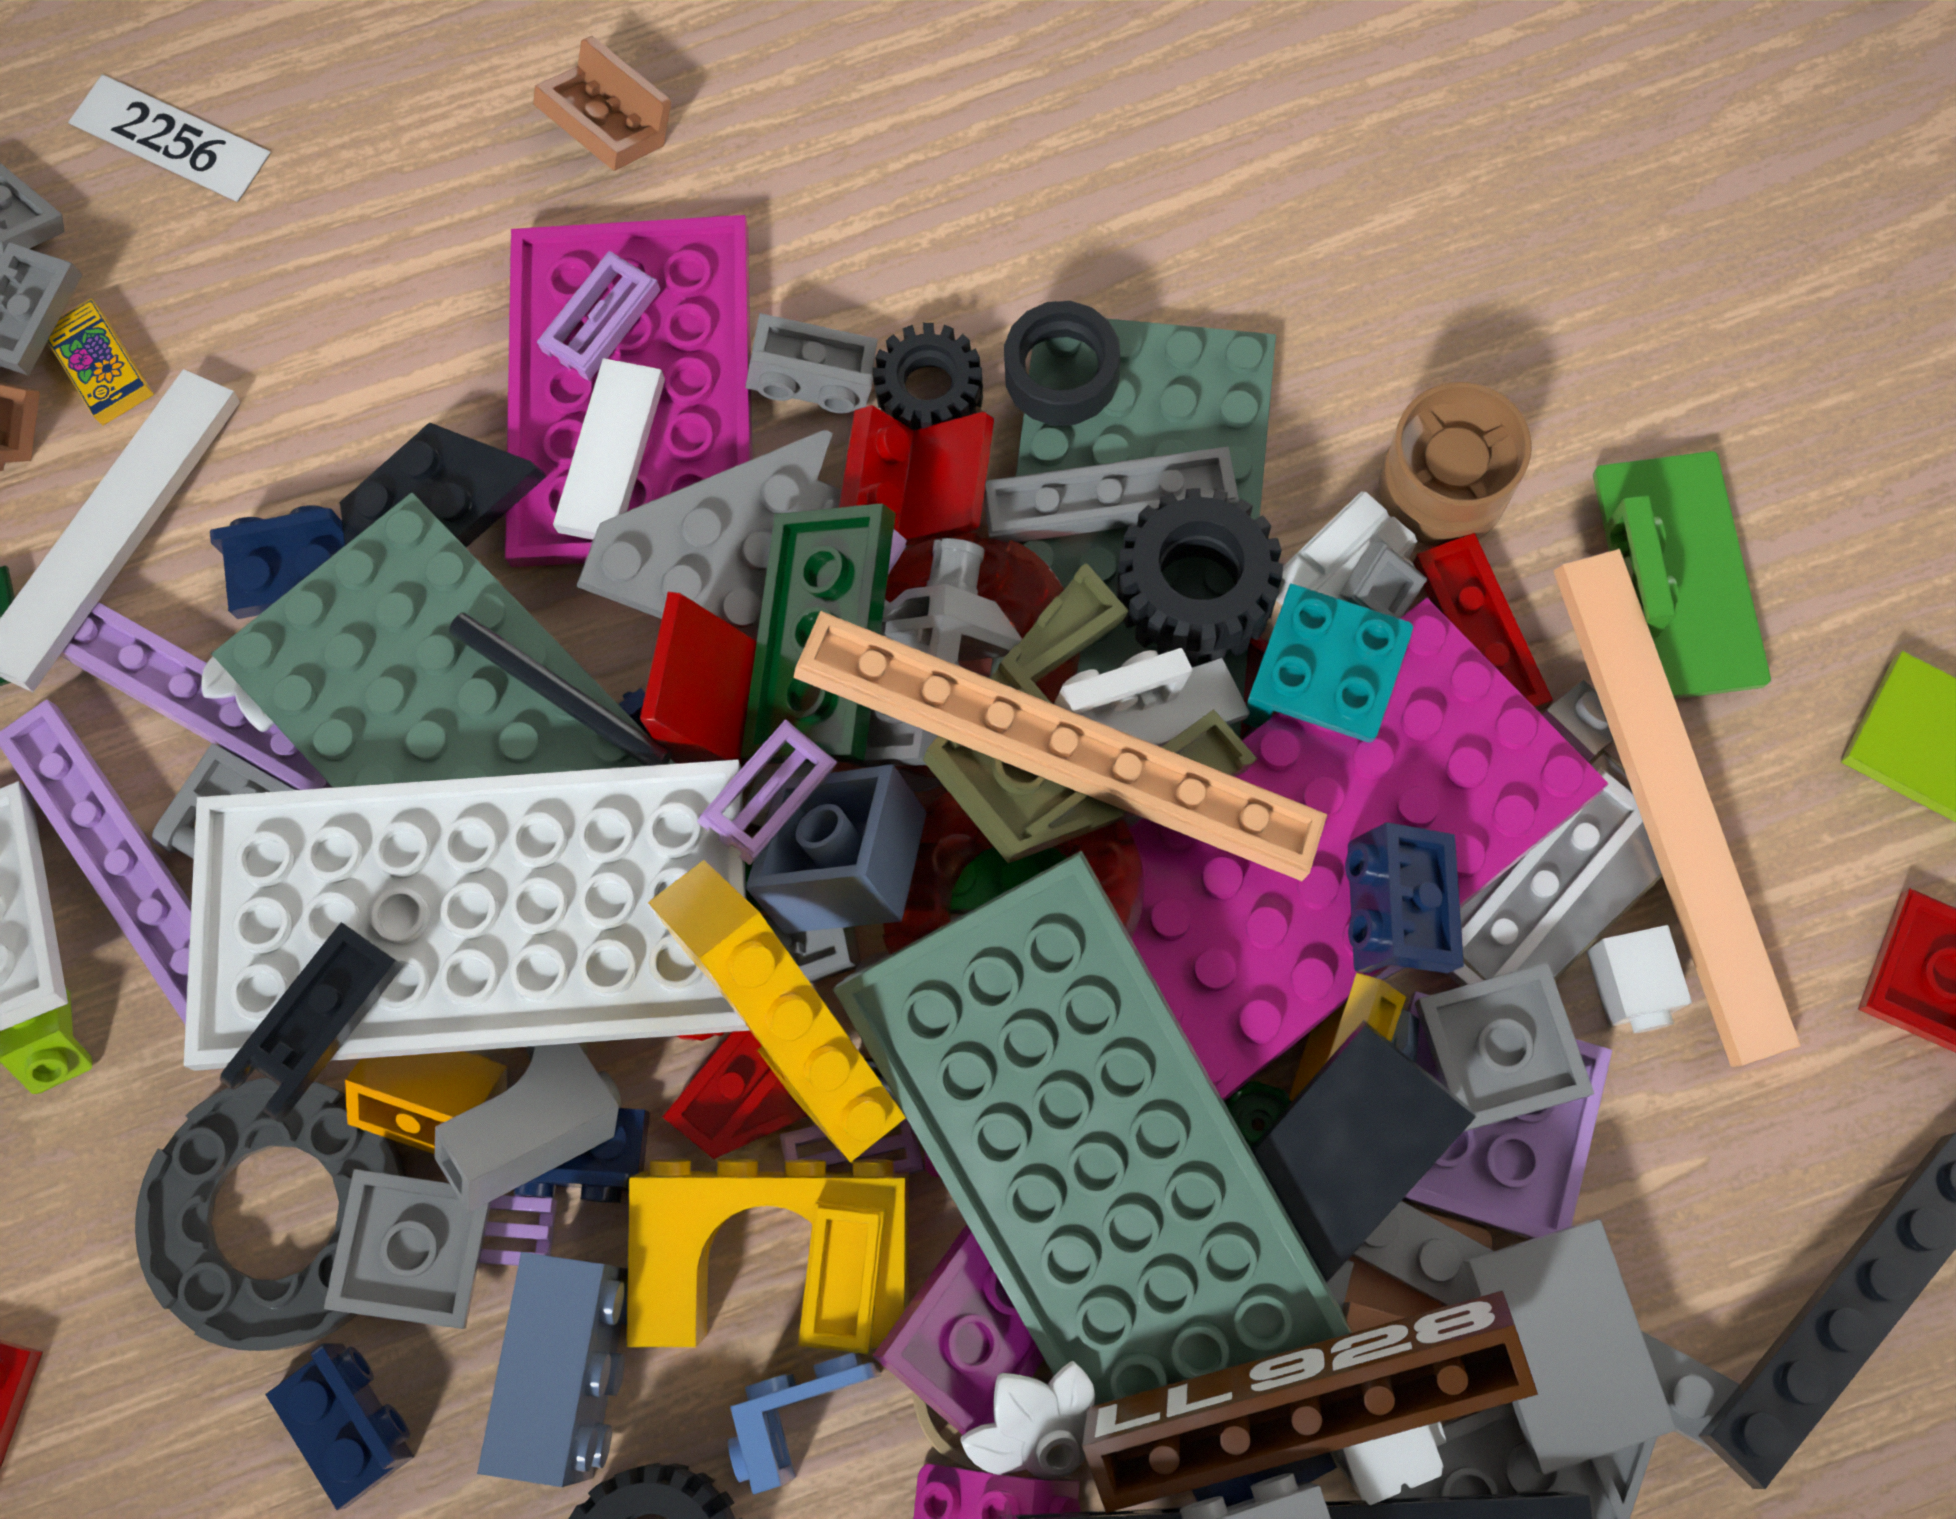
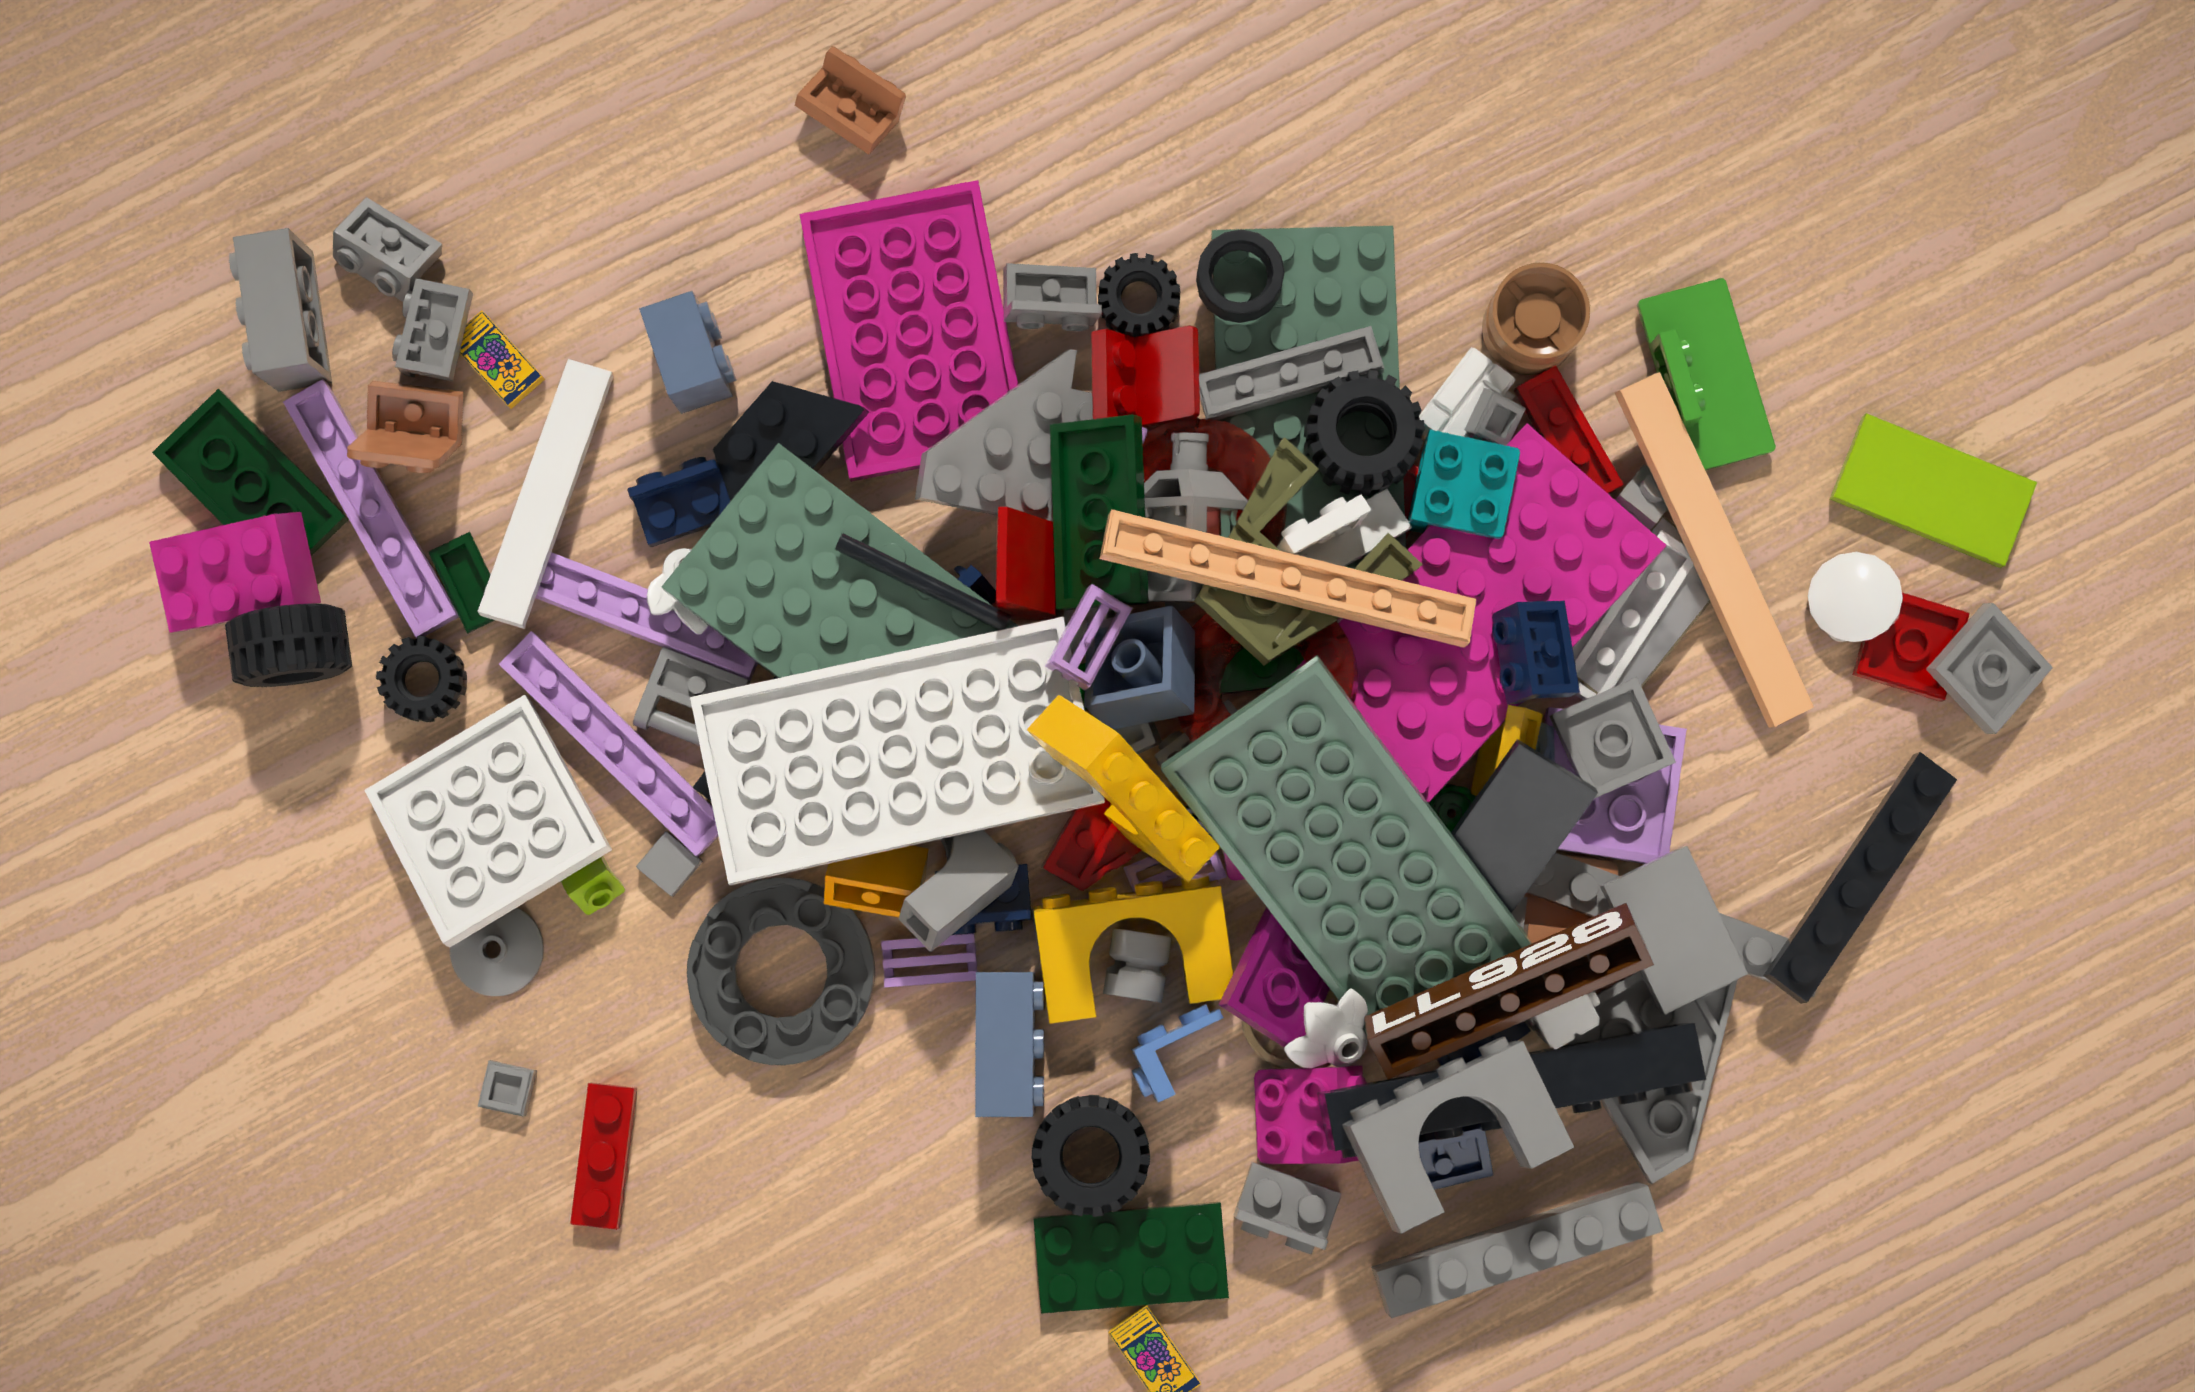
camera: 15 degrees left, 10 degrees up
(153, 1040) = (669, 864): none -> light grey tile
(169, 138) = (504, 163): white sticker -> none
(313, 1018) = (815, 838): black hinge -> none
(325, 370) = (686, 351): none -> sand blue brick
(341, 1423) = (858, 1102): dark blue bracket -> none
(406, 1251) = (887, 982): light grey plate -> none
(609, 447) = (913, 385): white tile -> none
(616, 328) = (867, 313): lavender tile -> none
(769, 1282) = (1137, 965): none -> light grey wheel
(842, 1277) = (1189, 956): yellow tile -> none
(1639, 979) = (1701, 676): white brick -> none
(1872, 898) = (1855, 597): none -> white dish

